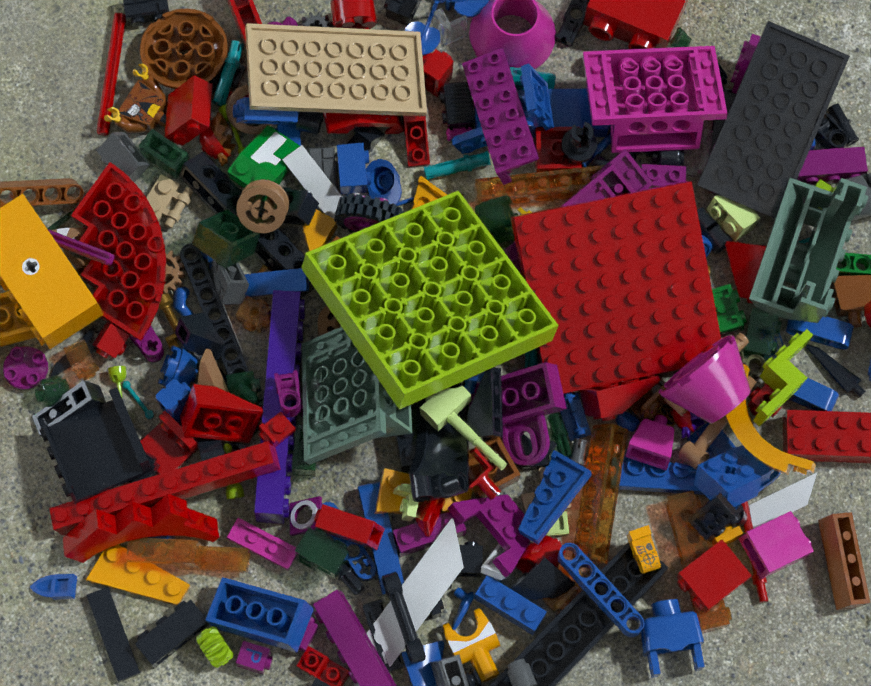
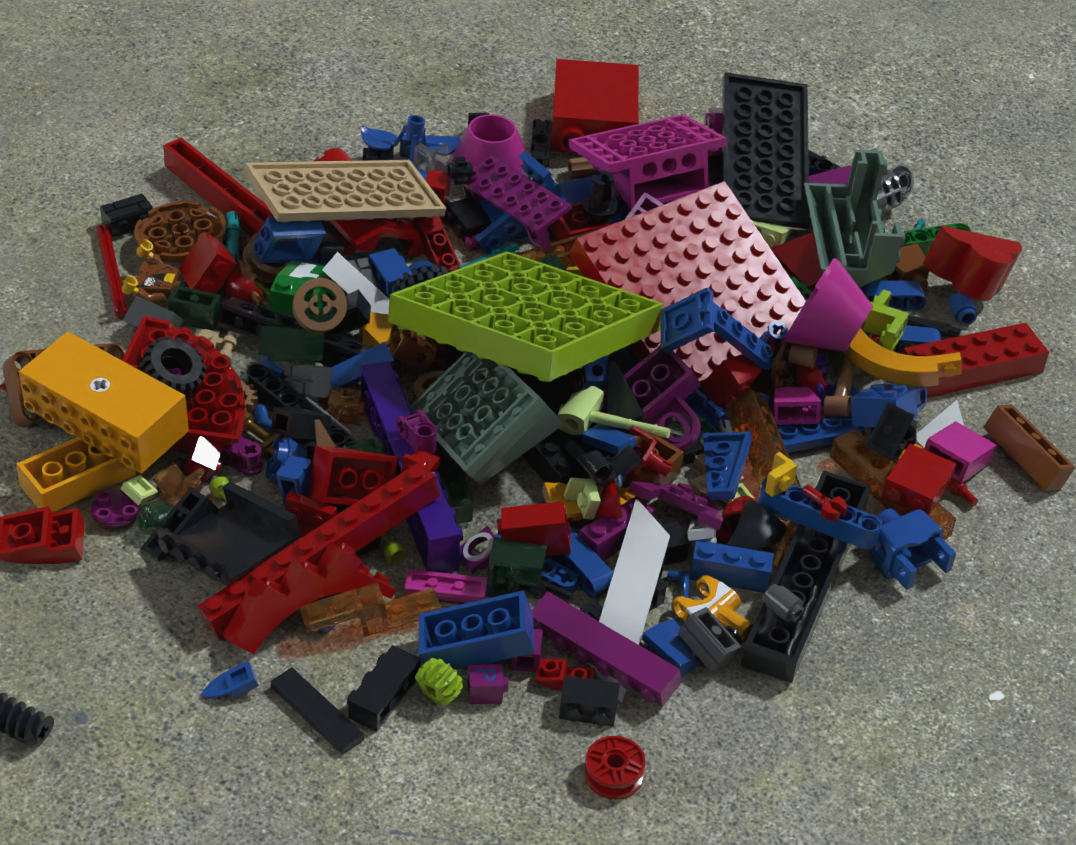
camera: 20 degrees left, 30 degrees down
(46, 359) = (139, 490): none -> yellowish green tile
(121, 252) = (174, 355): none -> black tyre
(137, 577) = (320, 651): light orange wing -> none
(395, 592) = (656, 619): black piece -> none
(454, 448) = (607, 438): none -> blue tile
(460, 63) = (459, 170): none -> black gear
(572, 359) = (699, 316): none -> blue bracket
(574, 556) = (781, 476): none -> yellow bracket
(603, 589) = (831, 508): none -> red bar
(644, 549) = (839, 471): light orange leg -> none
(657, 365) = (772, 331): none -> blue bush

